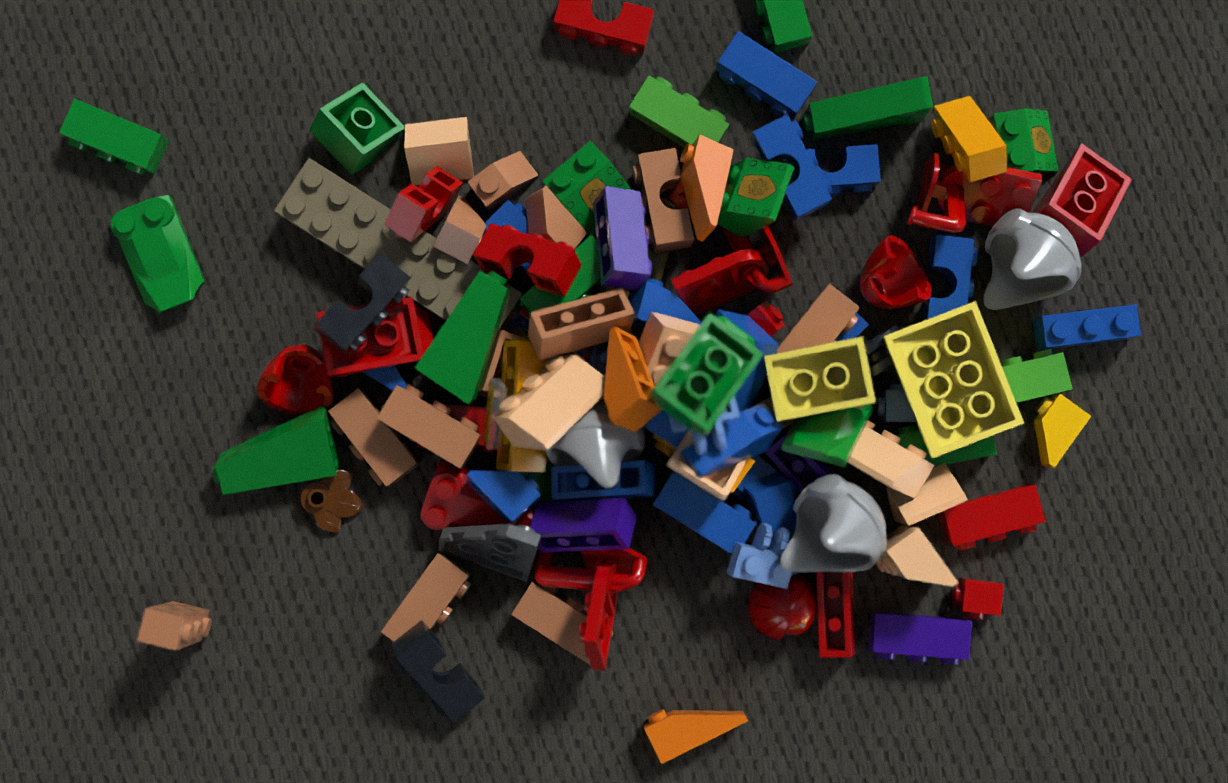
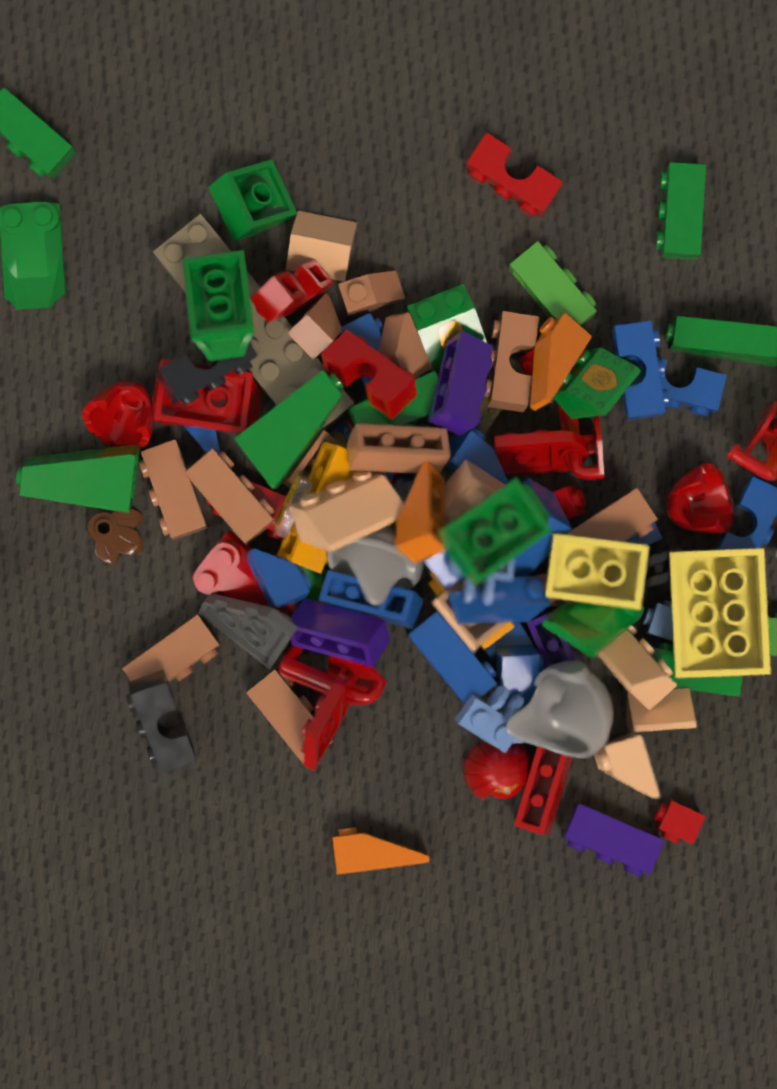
camera: 15 degrees right, 0 degrees up
(354, 239) = (219, 304): none -> green slope
(765, 76) = (645, 277): blue brick -> none
(992, 517) = (716, 752): red brick -> none

